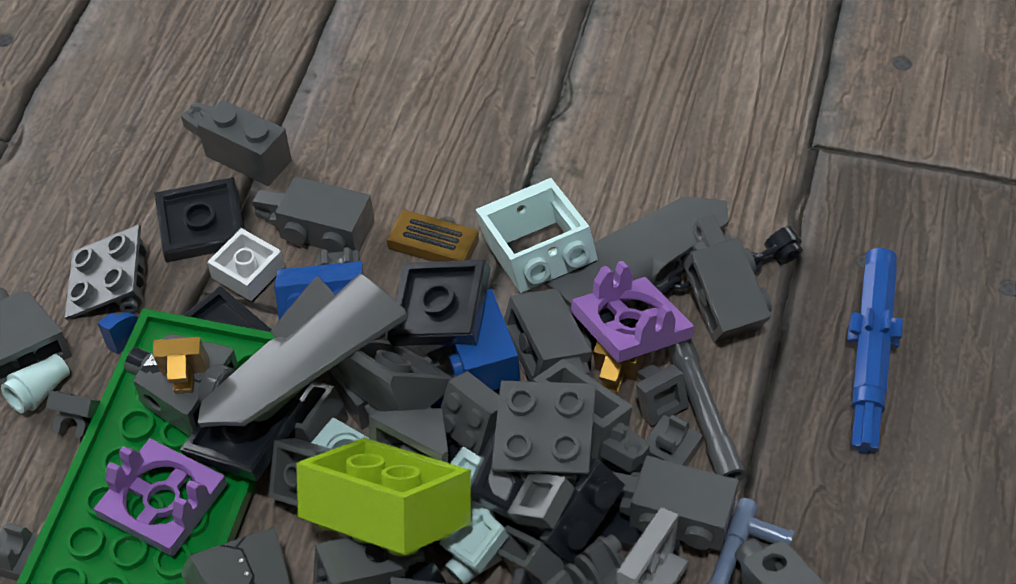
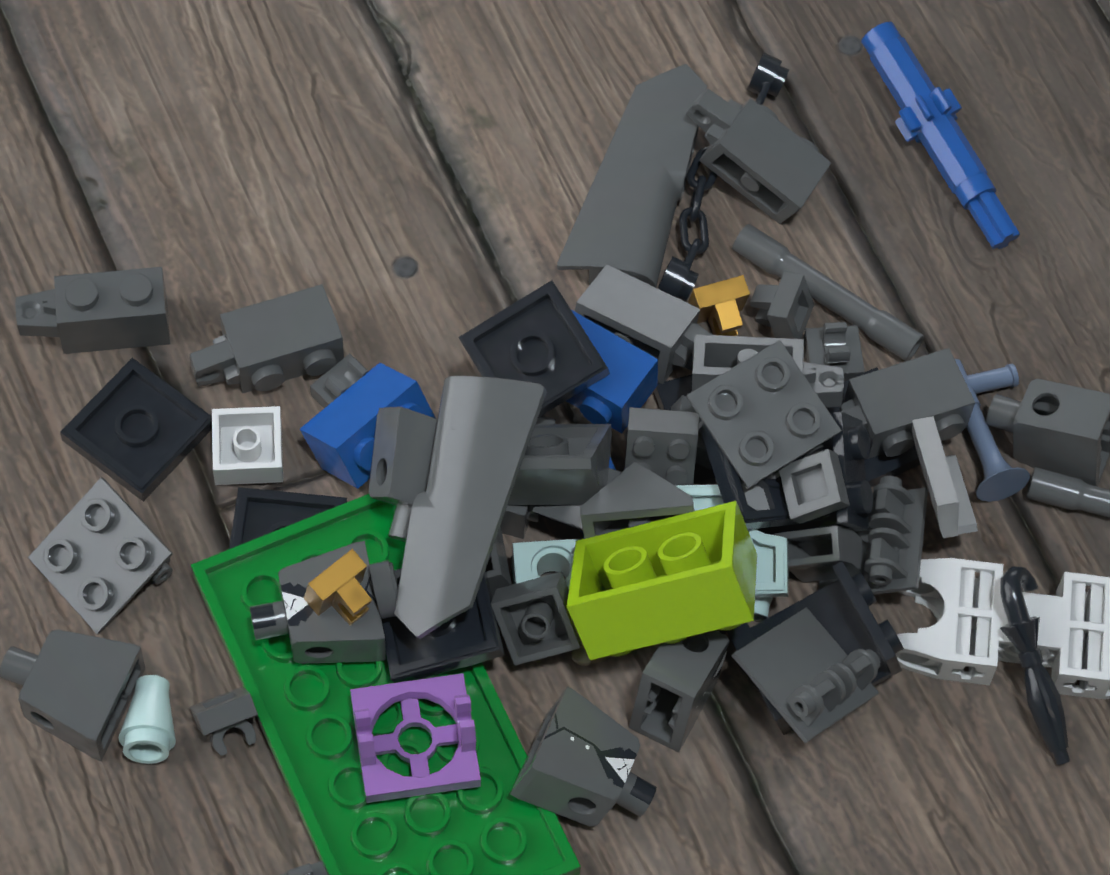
camera: 45 degrees left, 10 degrees up
(117, 330) = (181, 605): blue tile -> none
(432, 238) = (412, 291): pearl gold tile -> none
(543, 206) = (494, 197): light aqua window -> none
(655, 327) = (705, 277): medium lavender piece -> none

